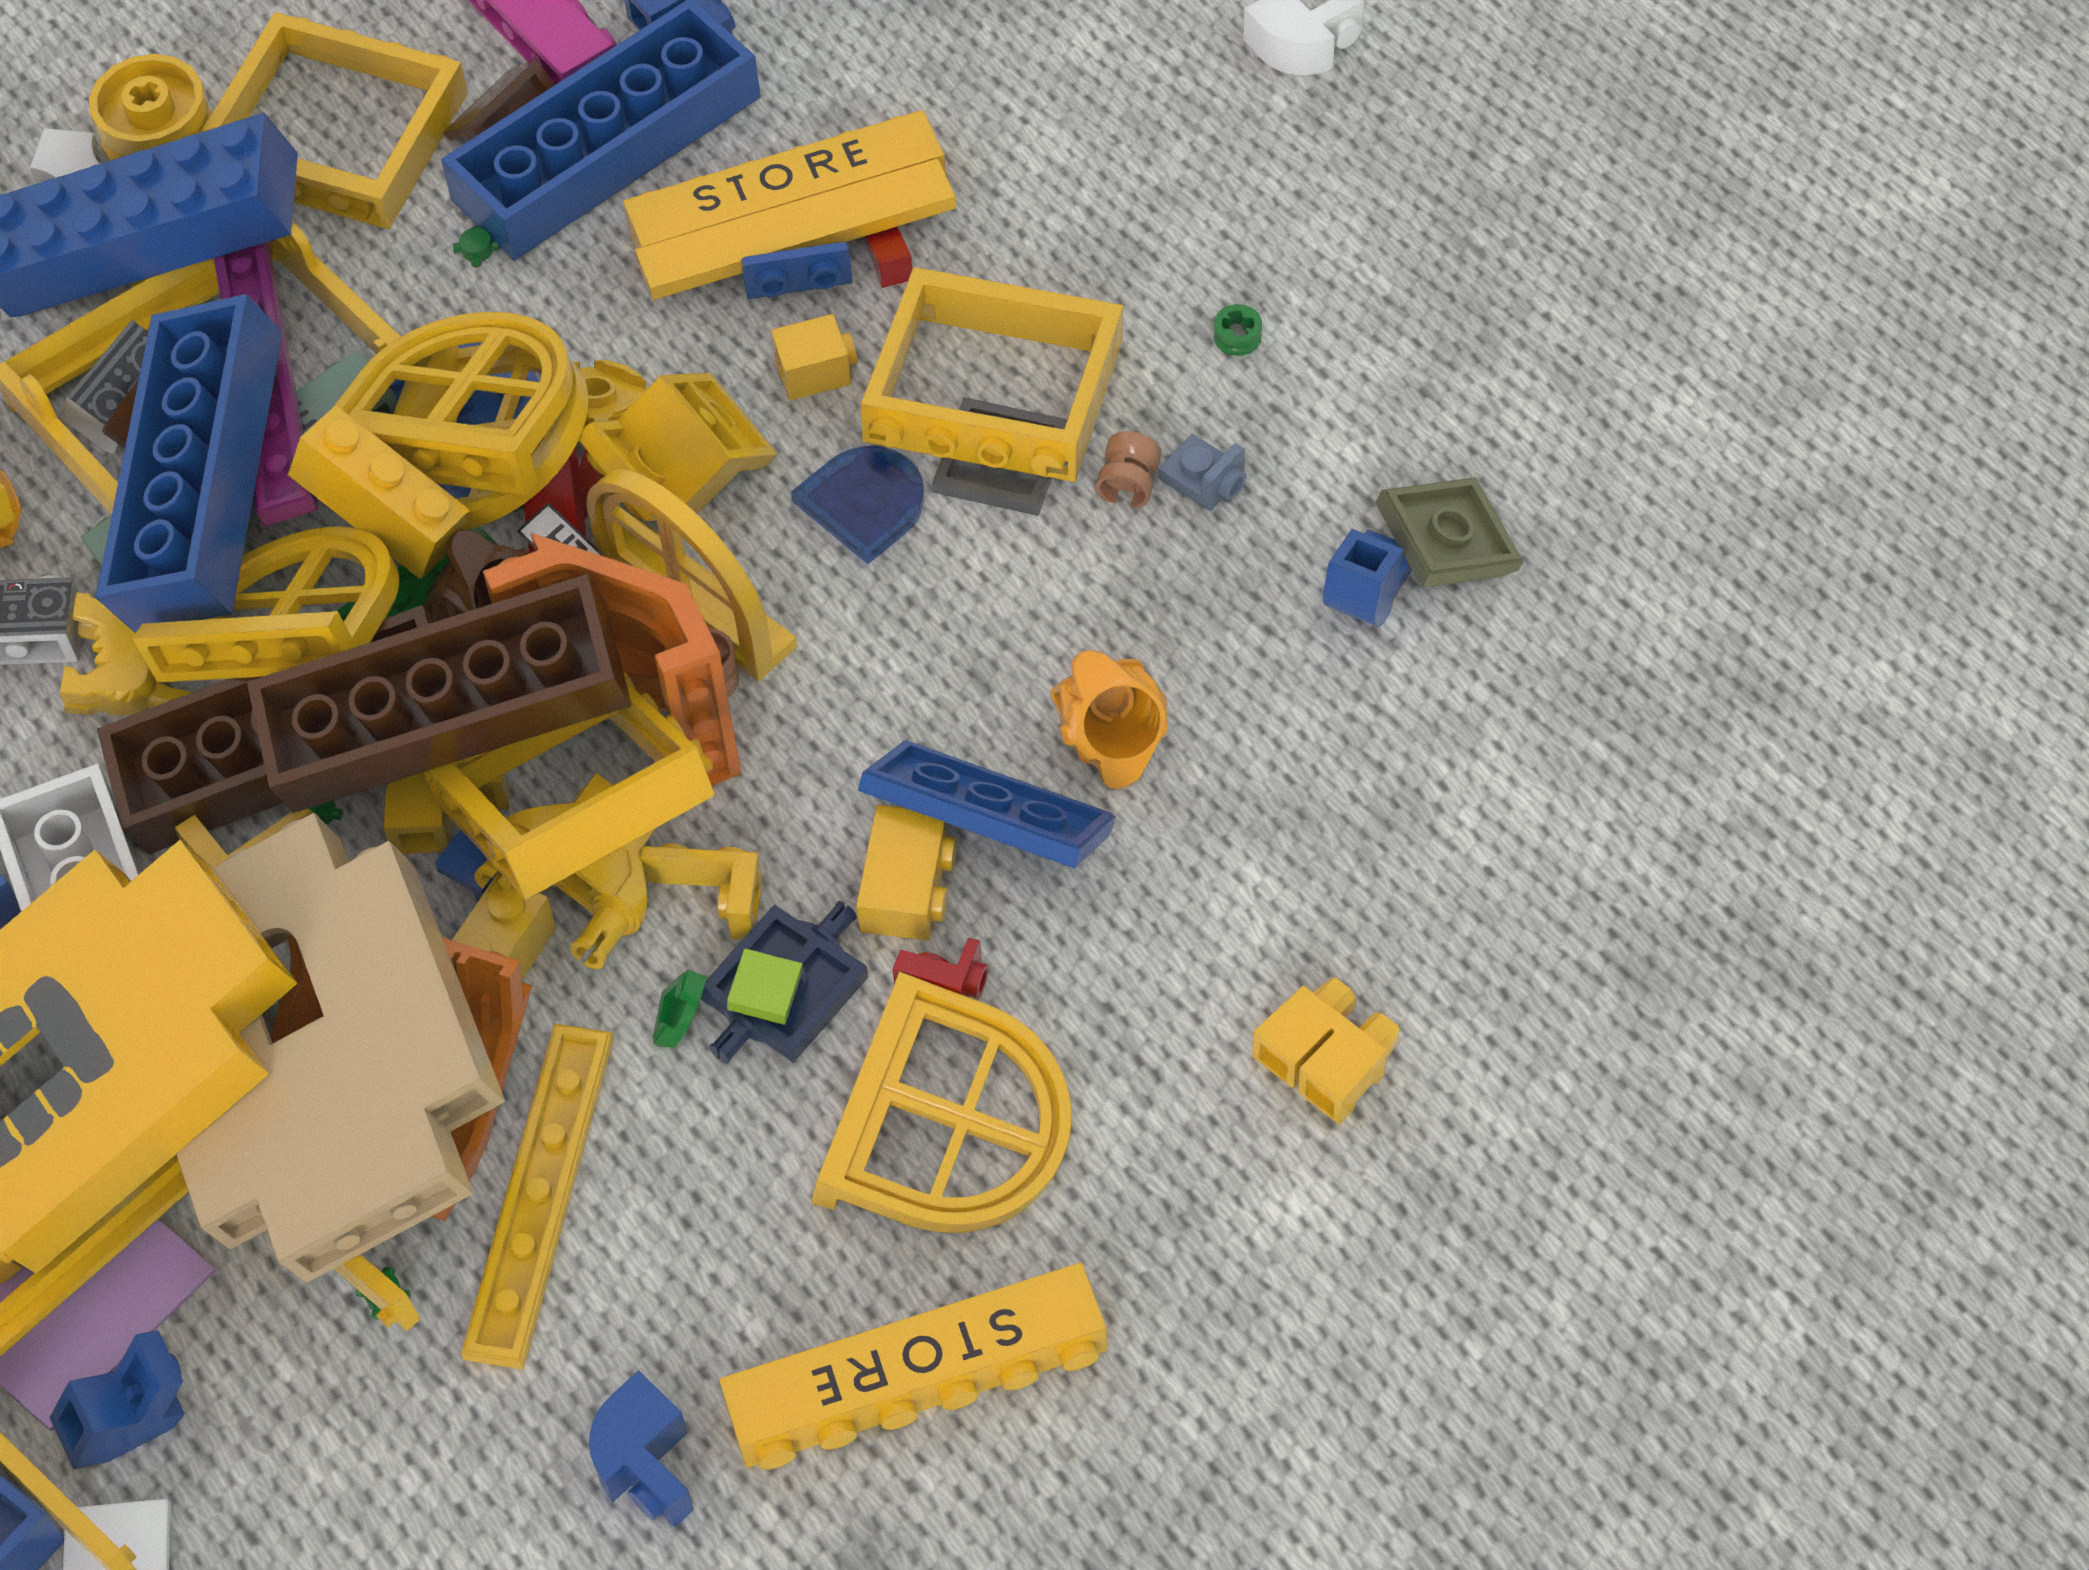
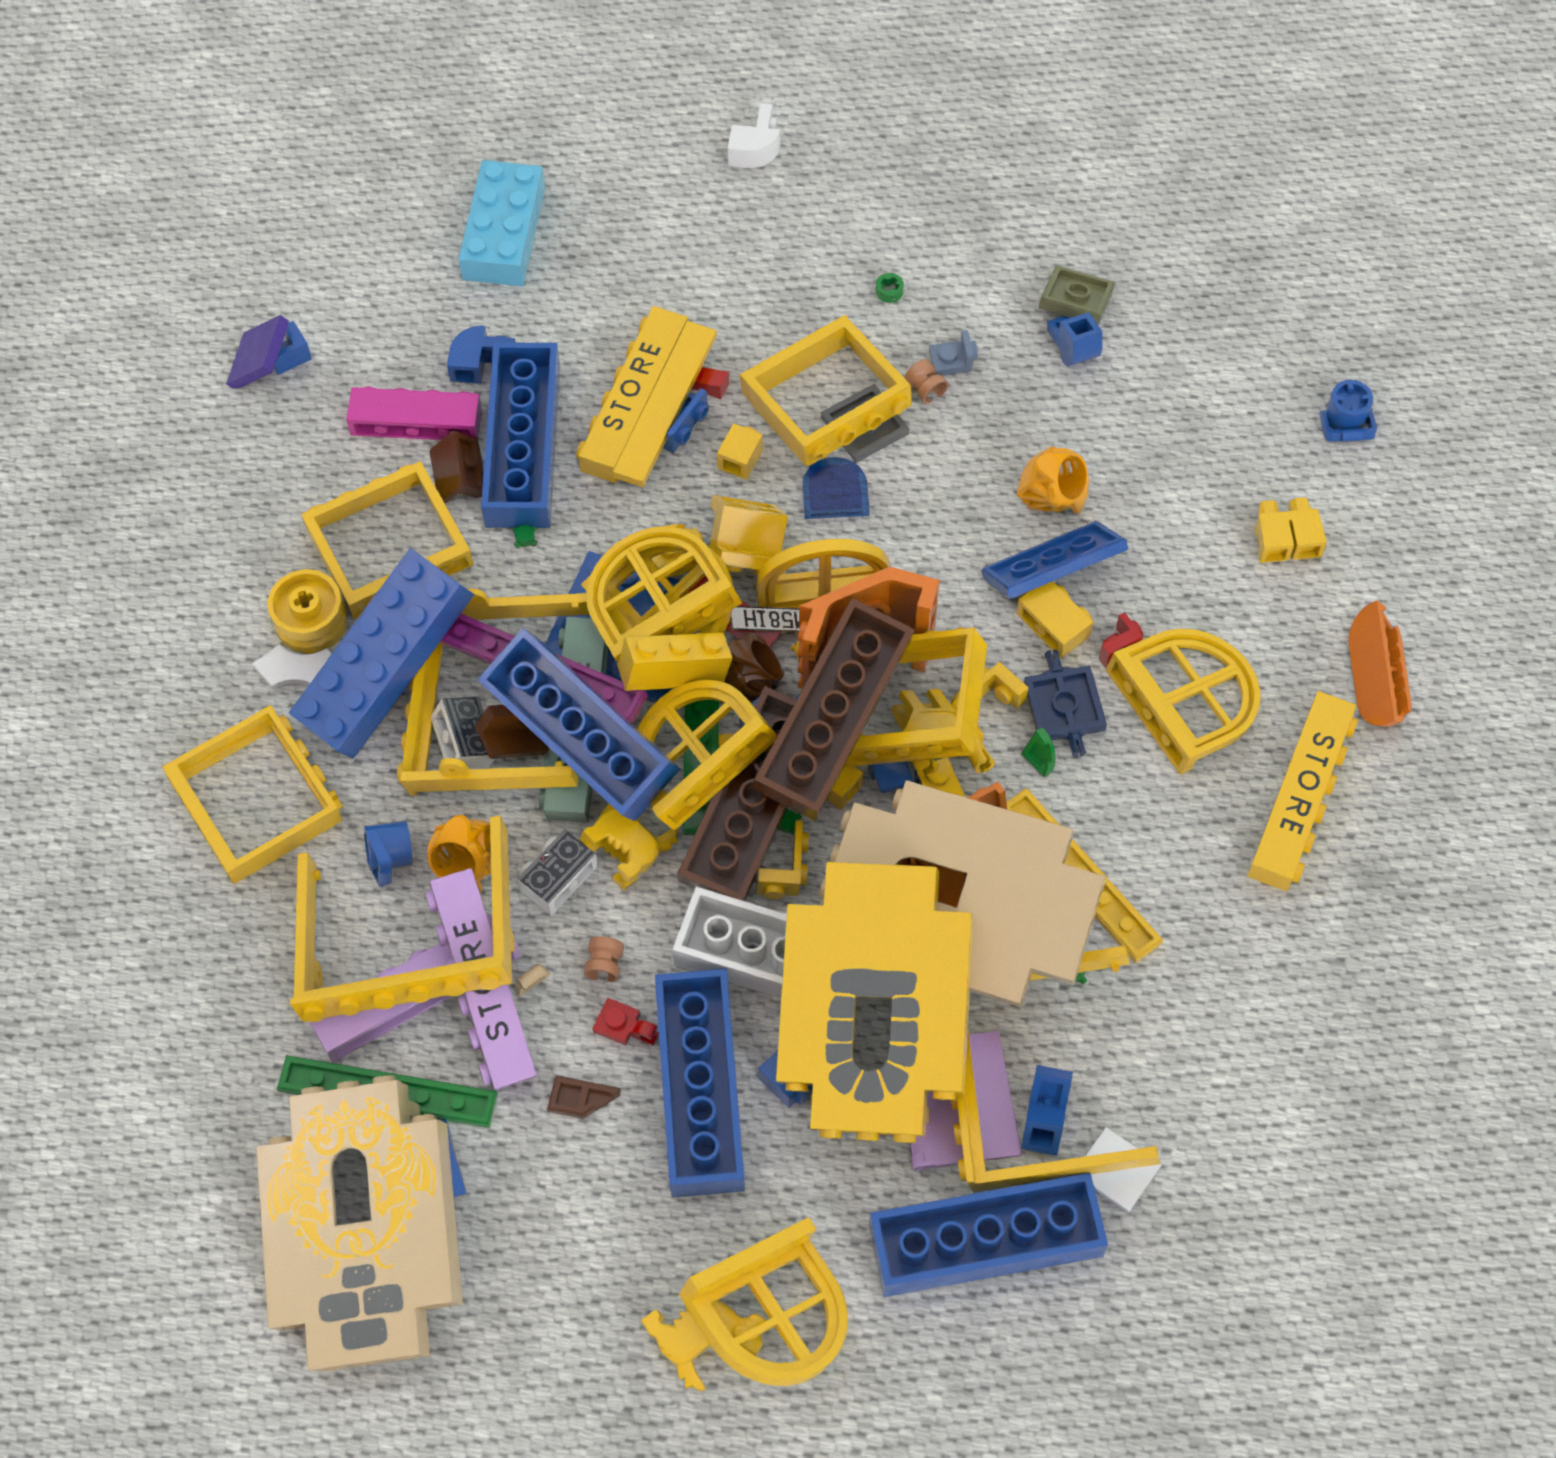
camera: 50 degrees left, 5 degrees up
(628, 1441) = (1245, 927): blue brick -> none
(764, 986) = (1070, 708): lime tile -> none
(1215, 1324) = (1379, 667): none -> orange brick
(1607, 985) = (1348, 412): none -> blue piece

